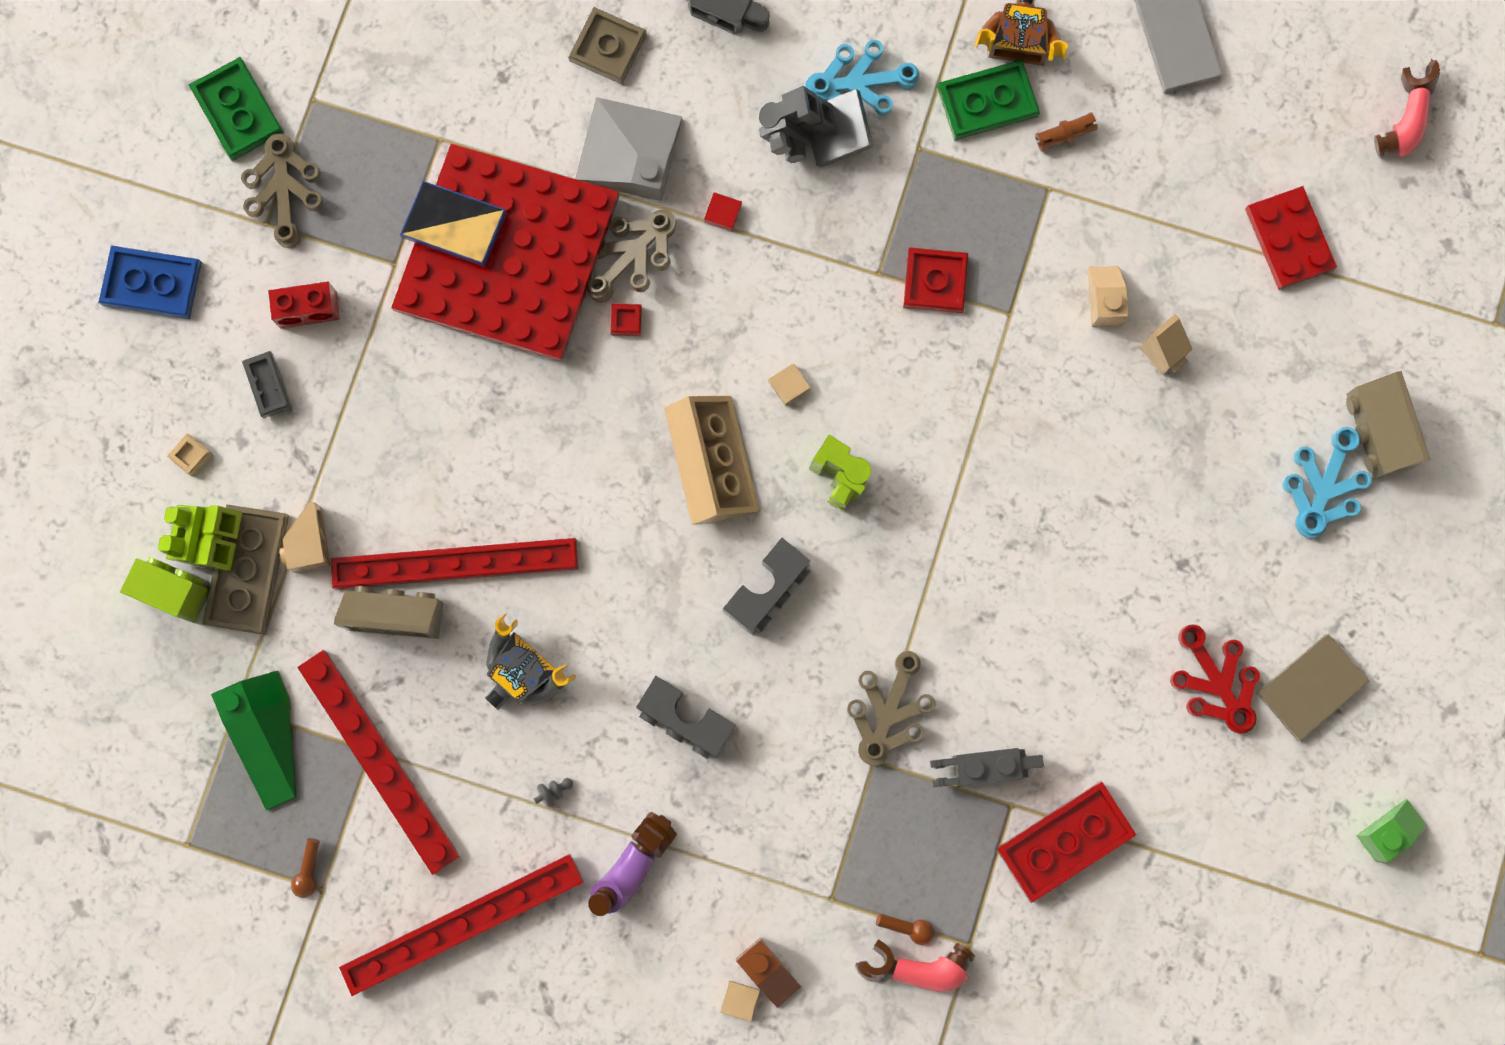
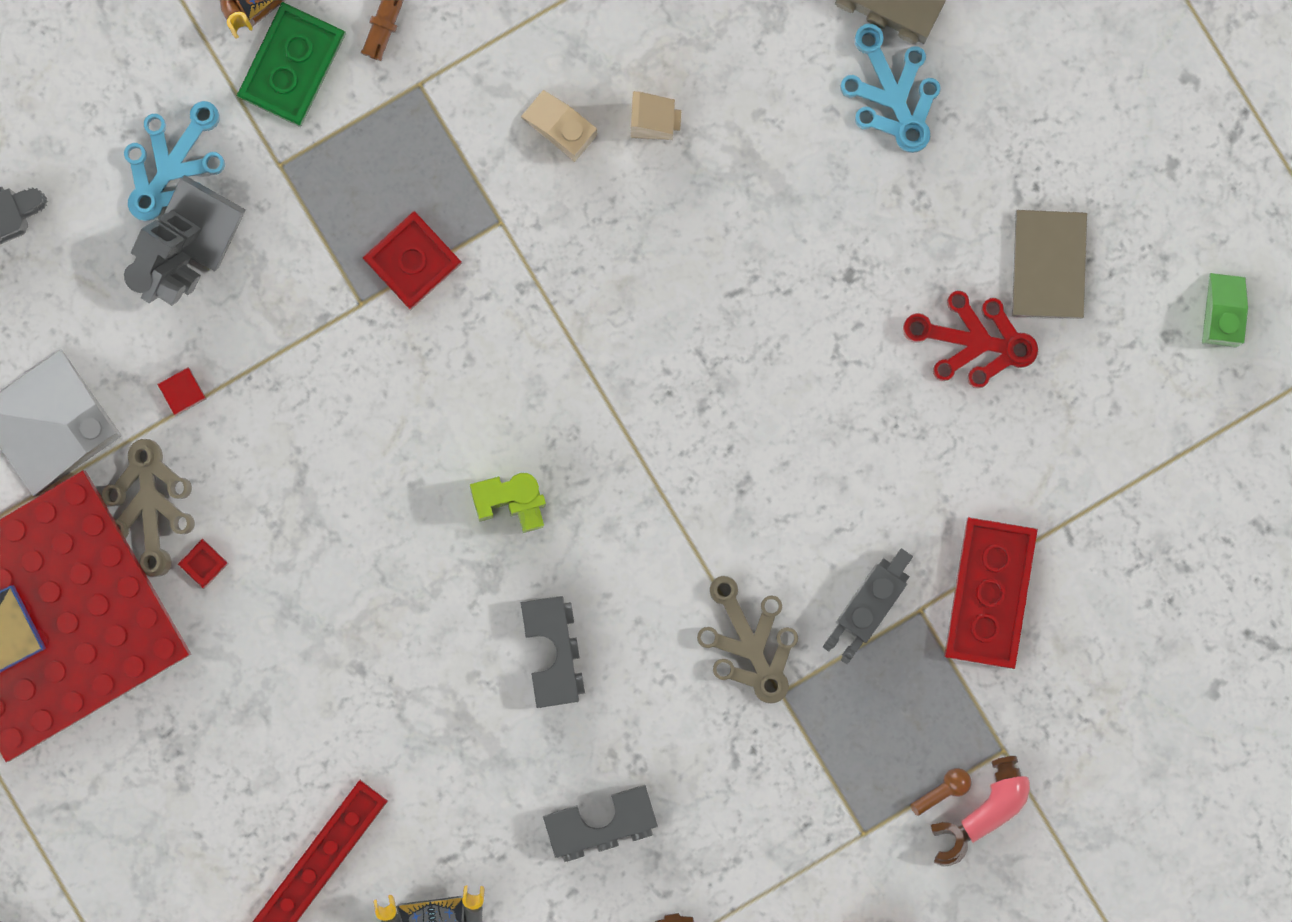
camera: 55 degrees left, 5 degrees up
(711, 459) = (396, 600): tan slope -> none
(789, 384) = (390, 472): tan tile -> none

